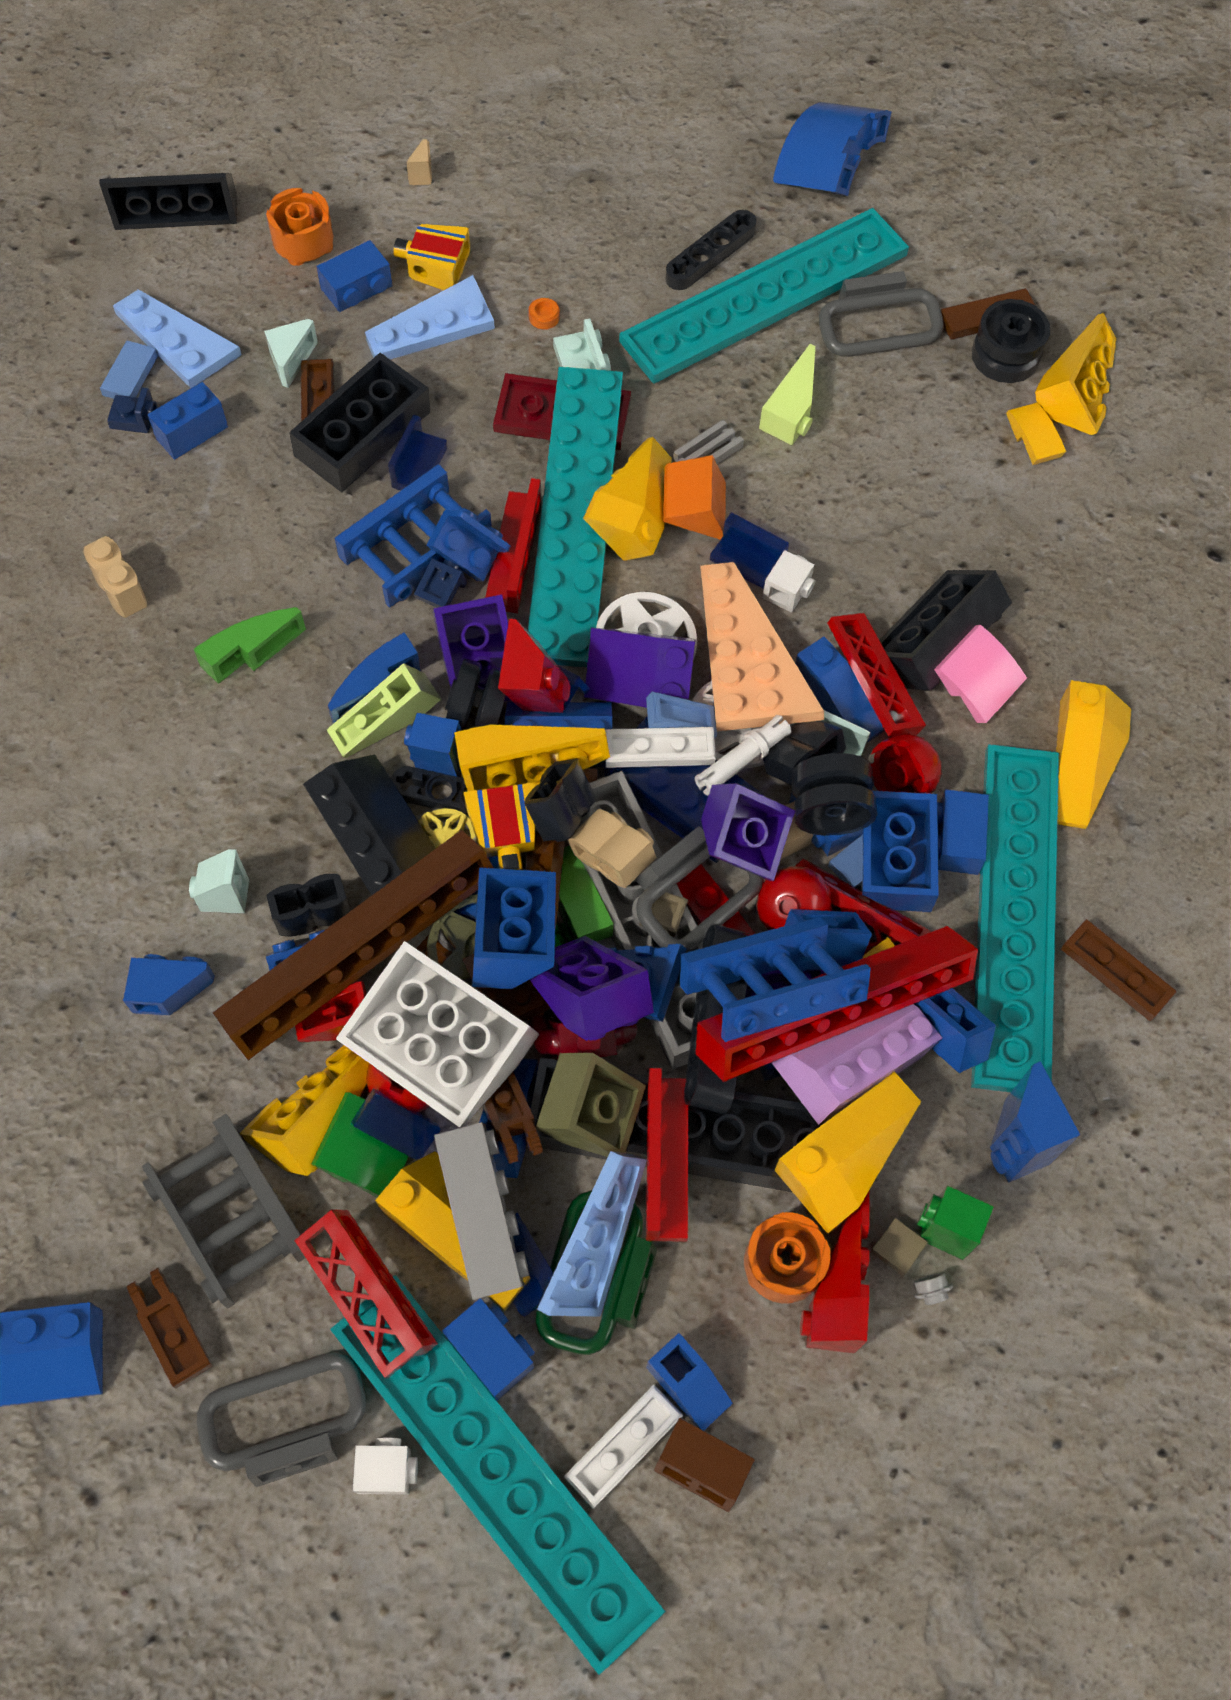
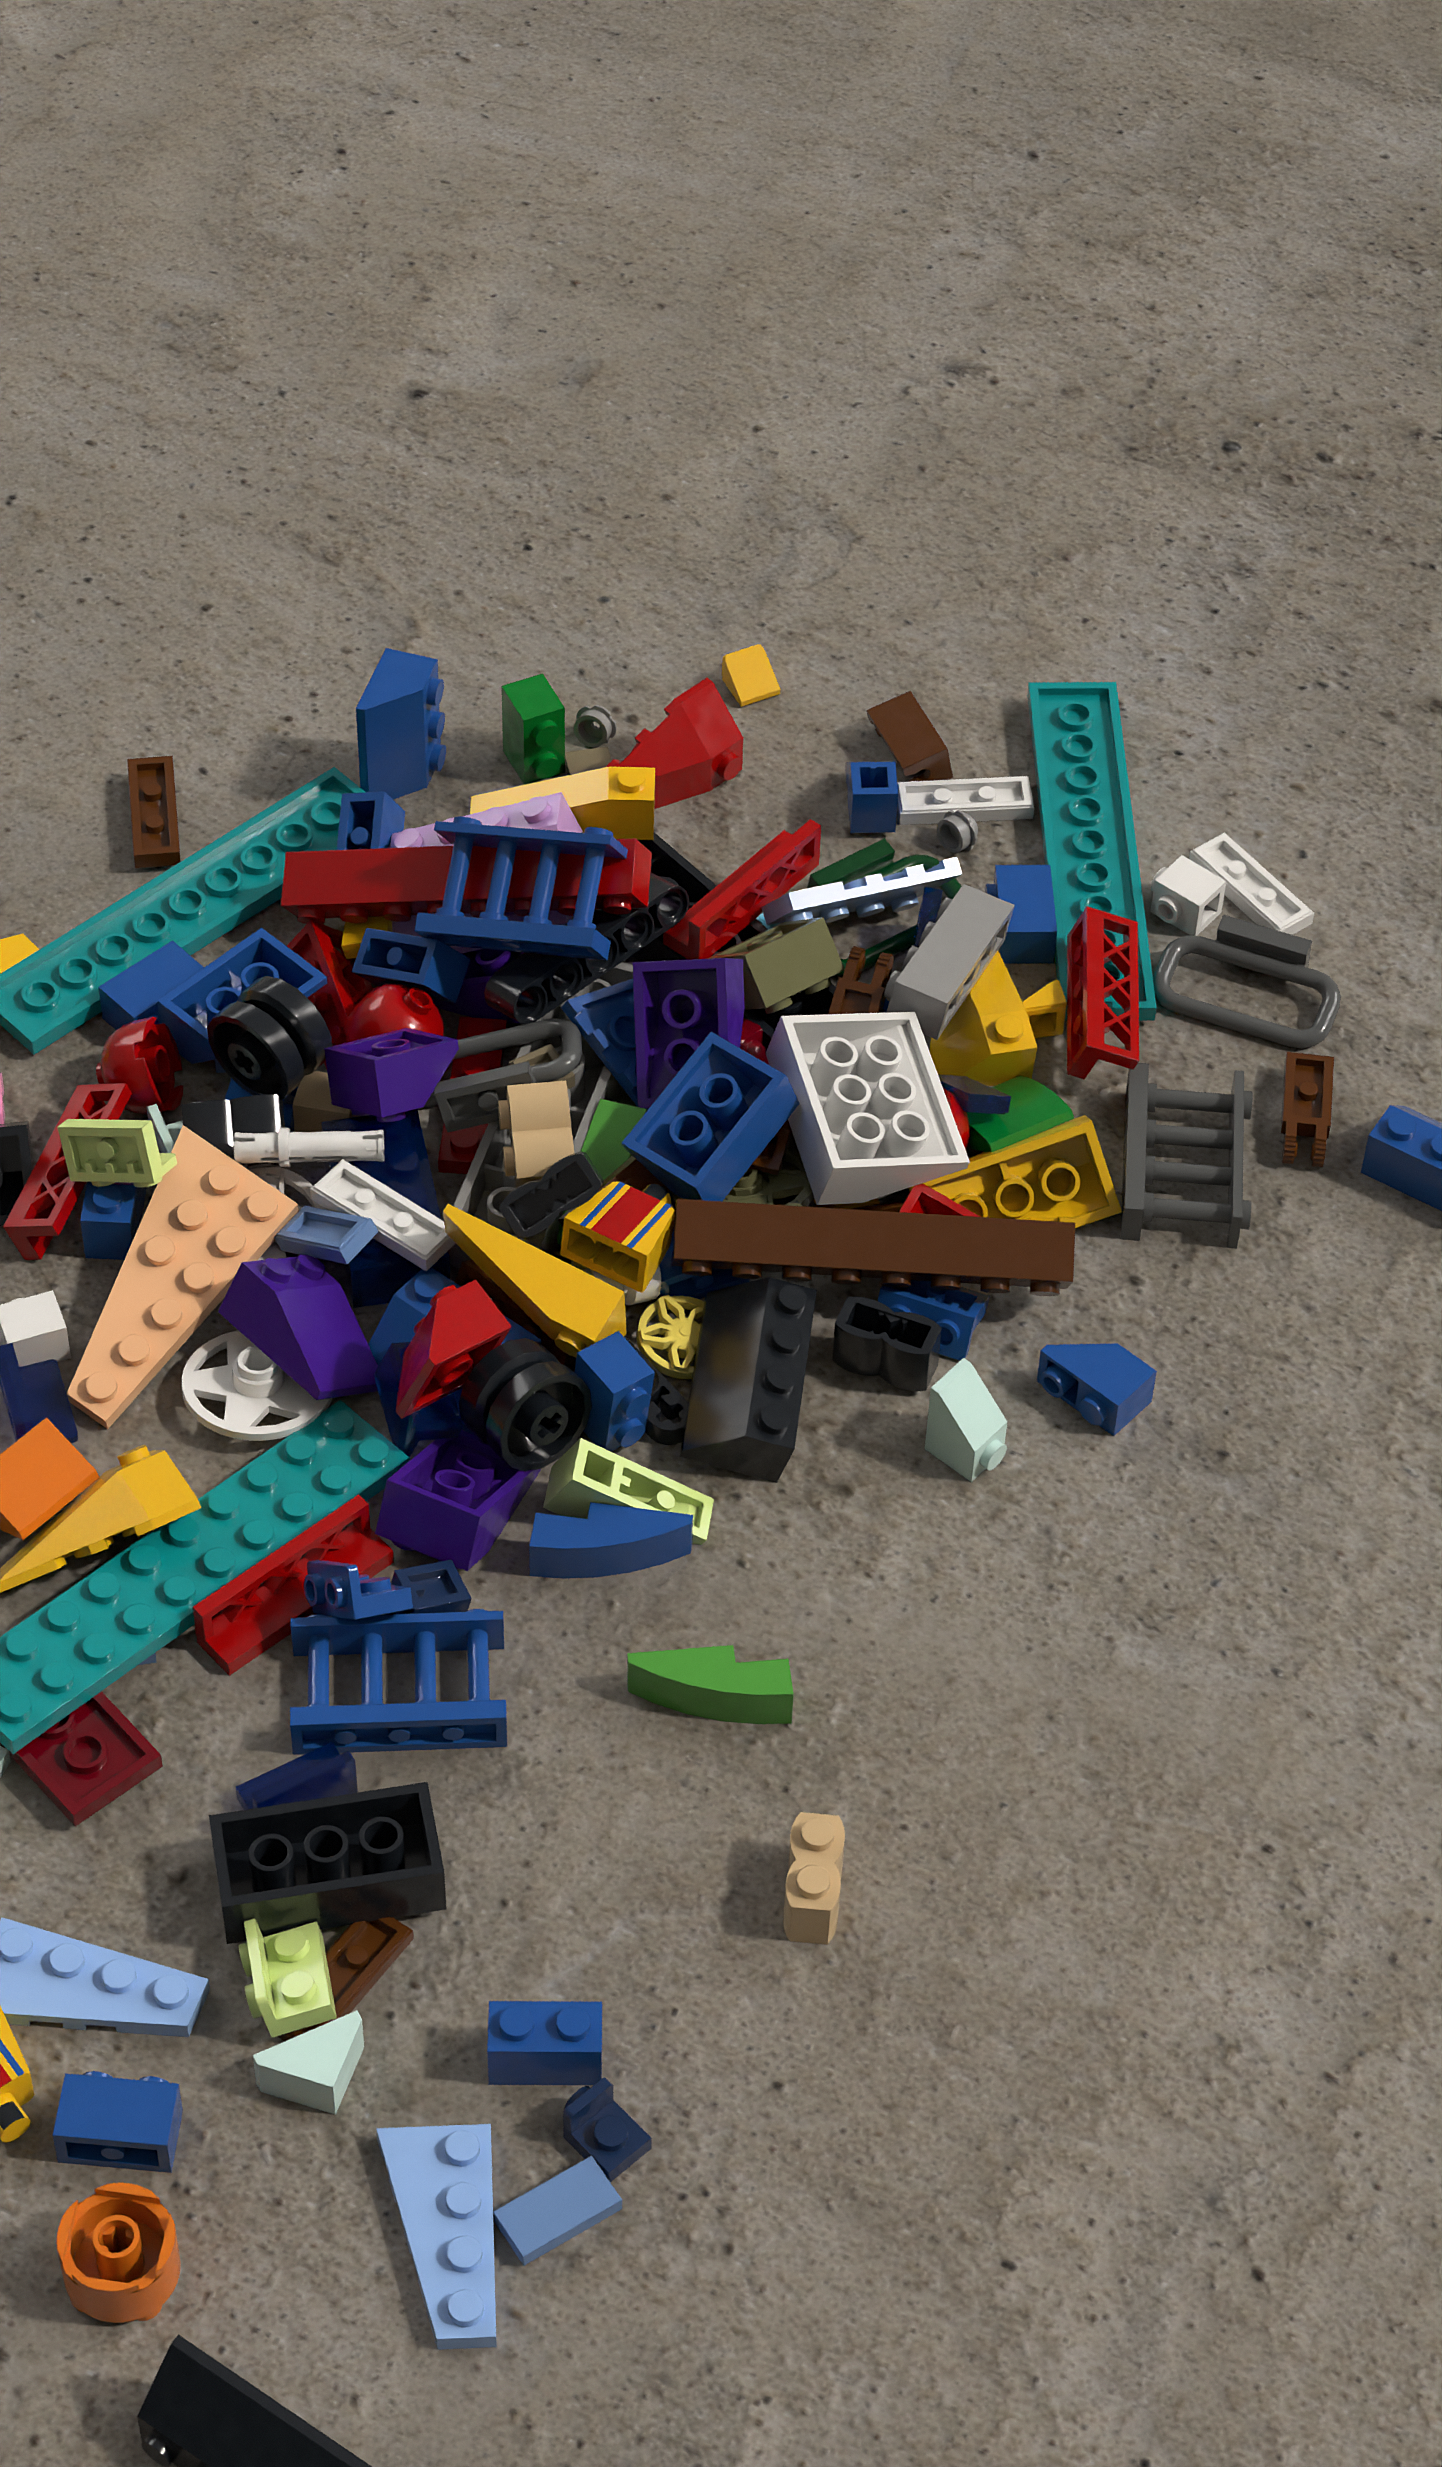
camera: 140 degrees left, 15 degrees down
(329, 364) = (288, 1977): none -> yellowish green bracket
(348, 1534) = (1252, 886): none -> white tile
(407, 1262) = (1047, 1010): none -> yellow slope
(599, 1401) = (957, 831): none -> light grey plate
(807, 1251) = (702, 804): orange brick -> none
(832, 660) = (113, 1152): none -> yellowish green bracket
(875, 1440) = (749, 675): none -> yellow slope

